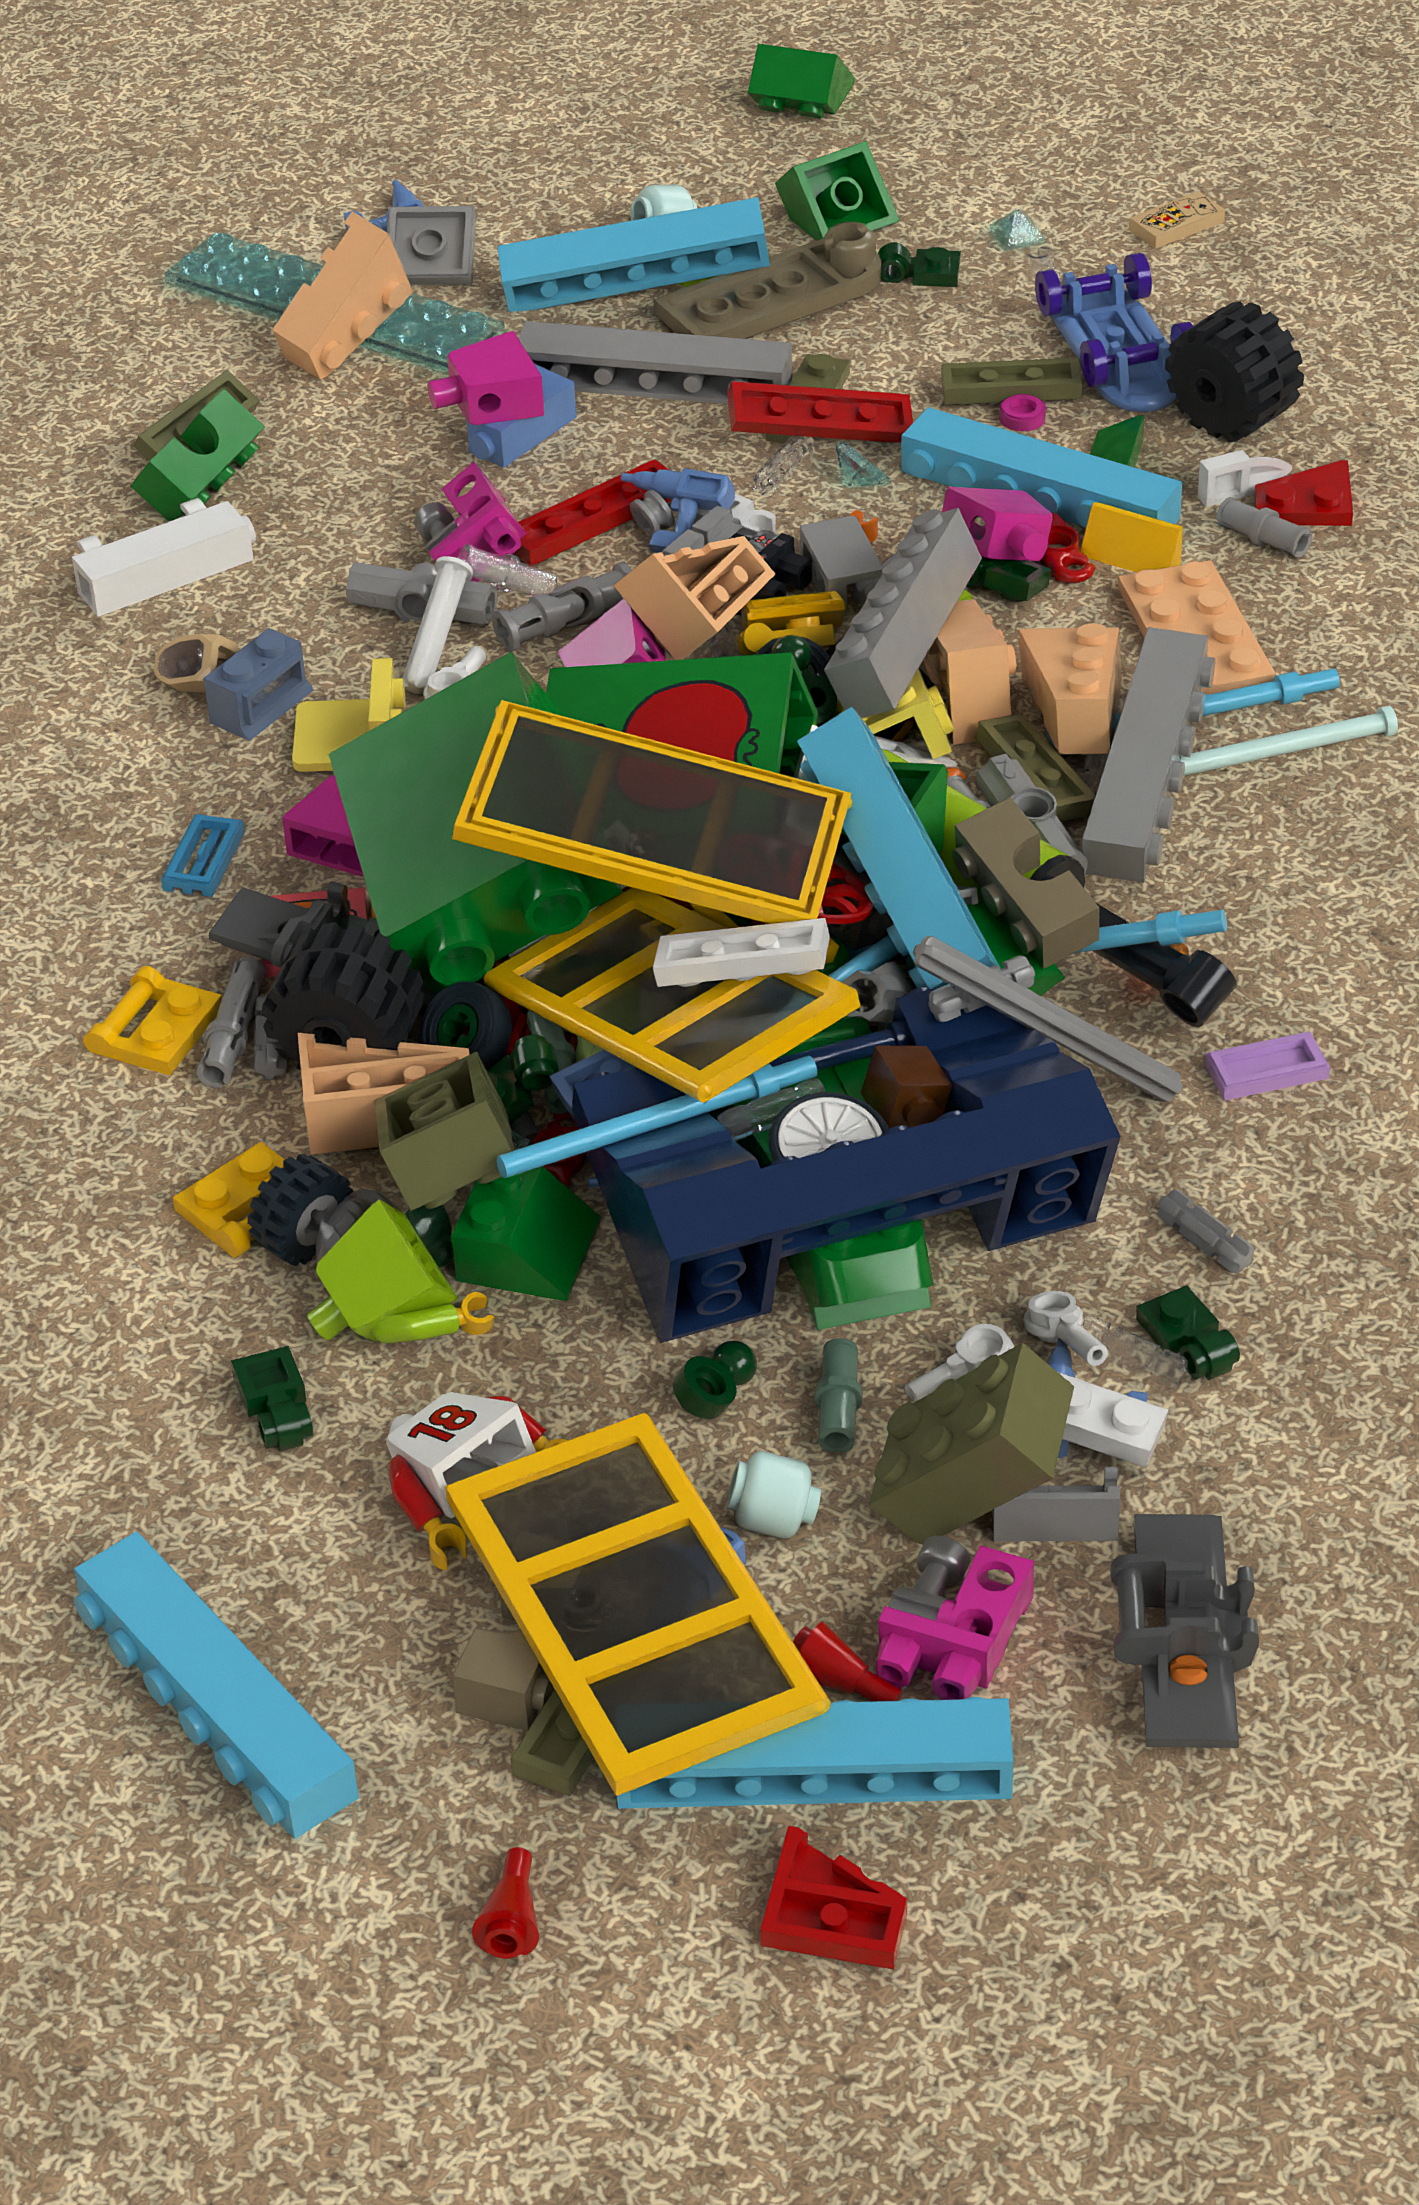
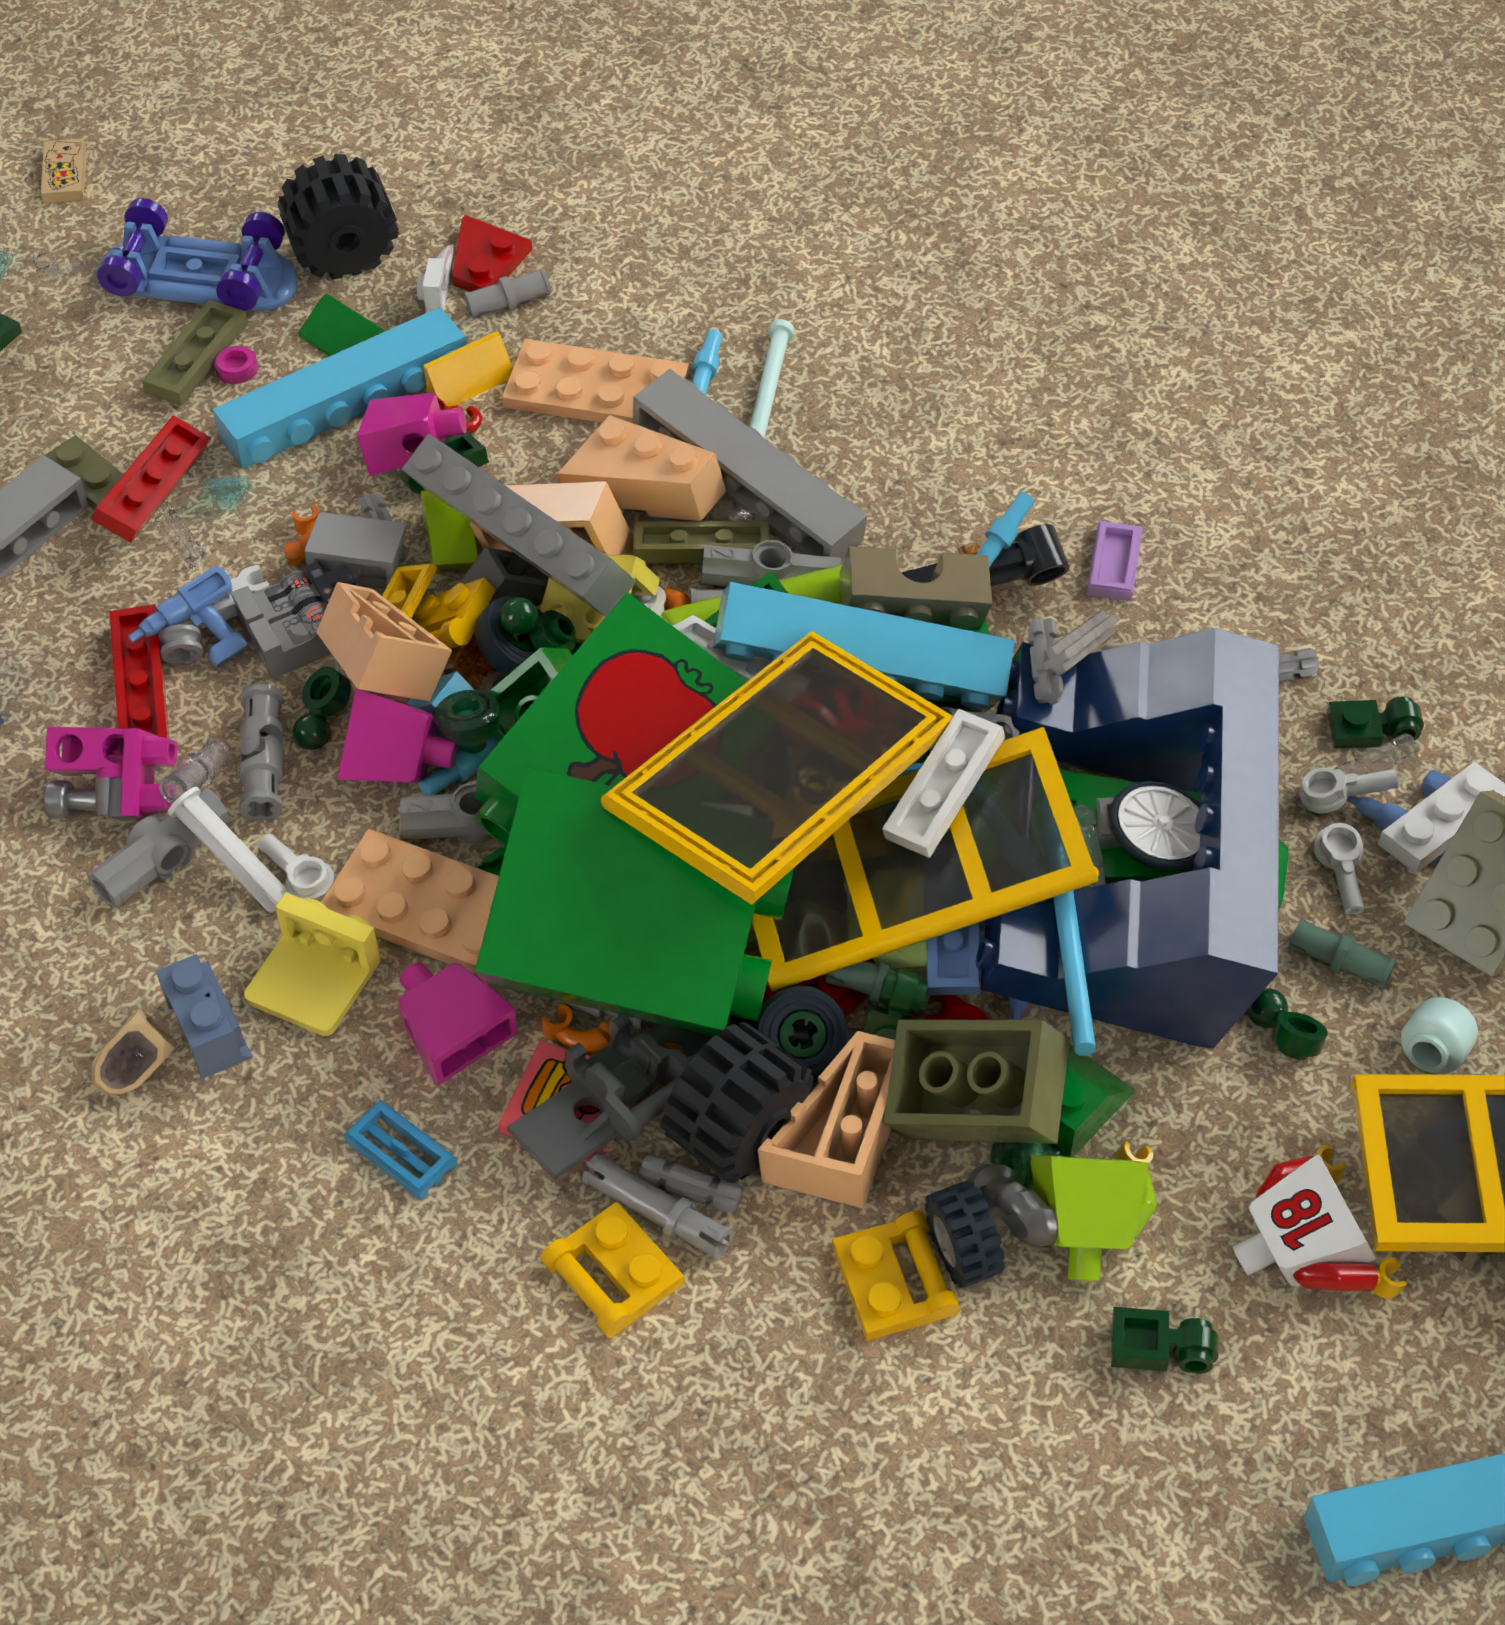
camera: 65 degrees left, 10 degrees up
(906, 1085) = (1118, 754): reddish brown brick -> none

